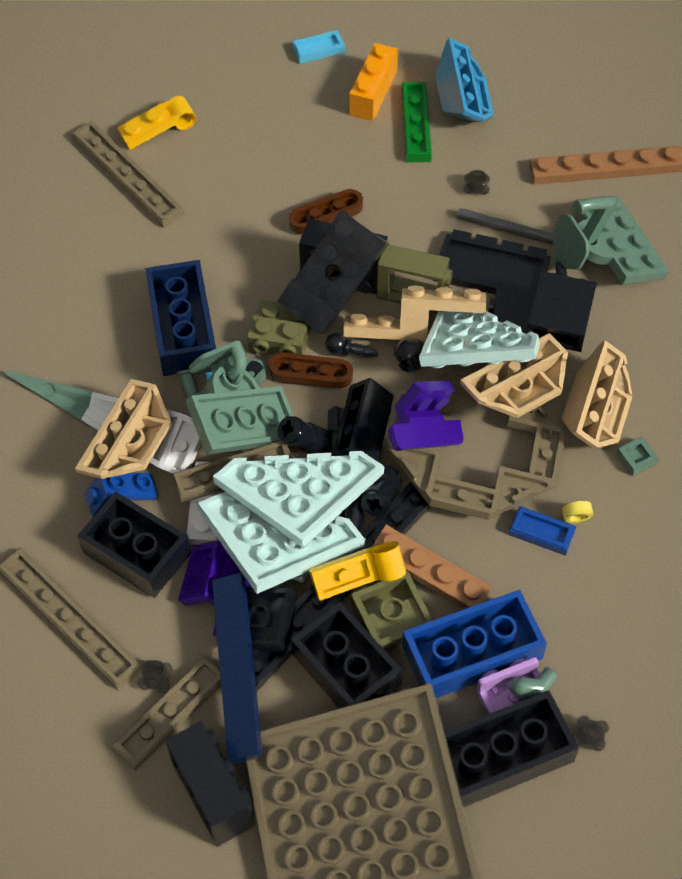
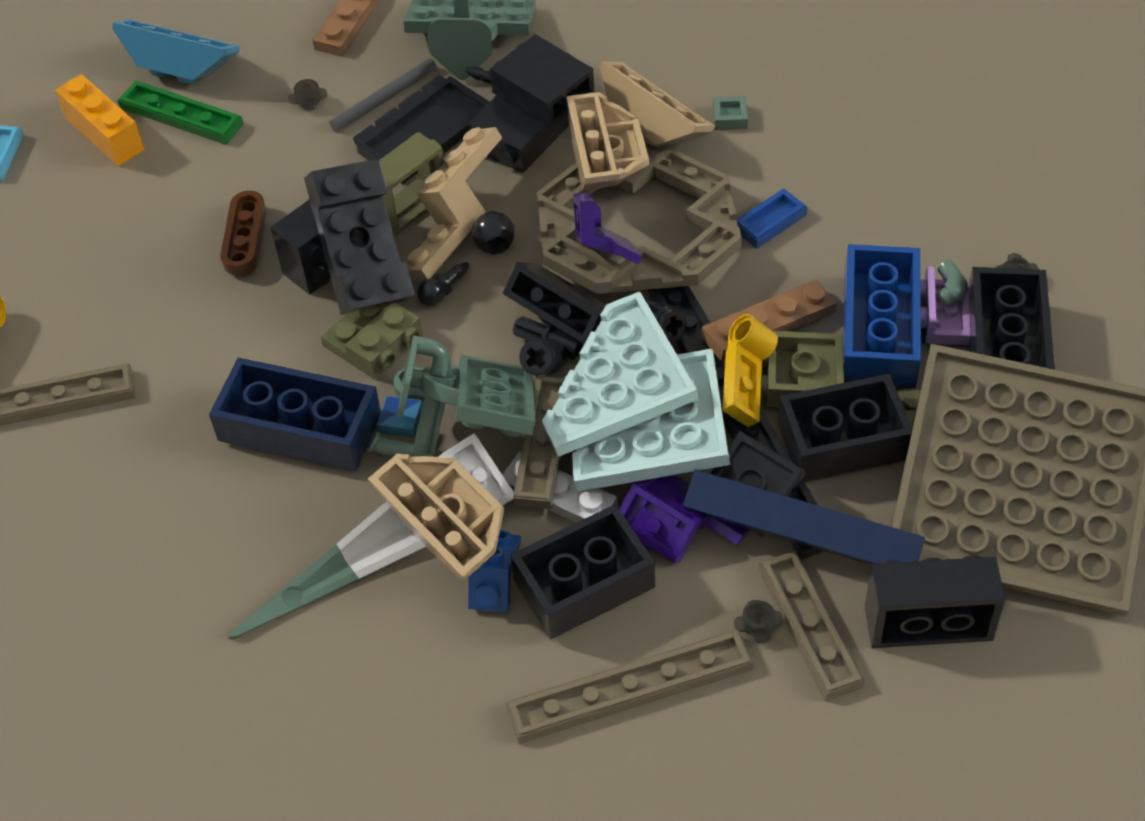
camera: 60 degrees left, 5 degrees down
(299, 365) = (455, 317): reddish brown plate -> none
(476, 338) = (530, 163): light aqua plate -> none
(577, 511) = (770, 179): light yellow tile -> none

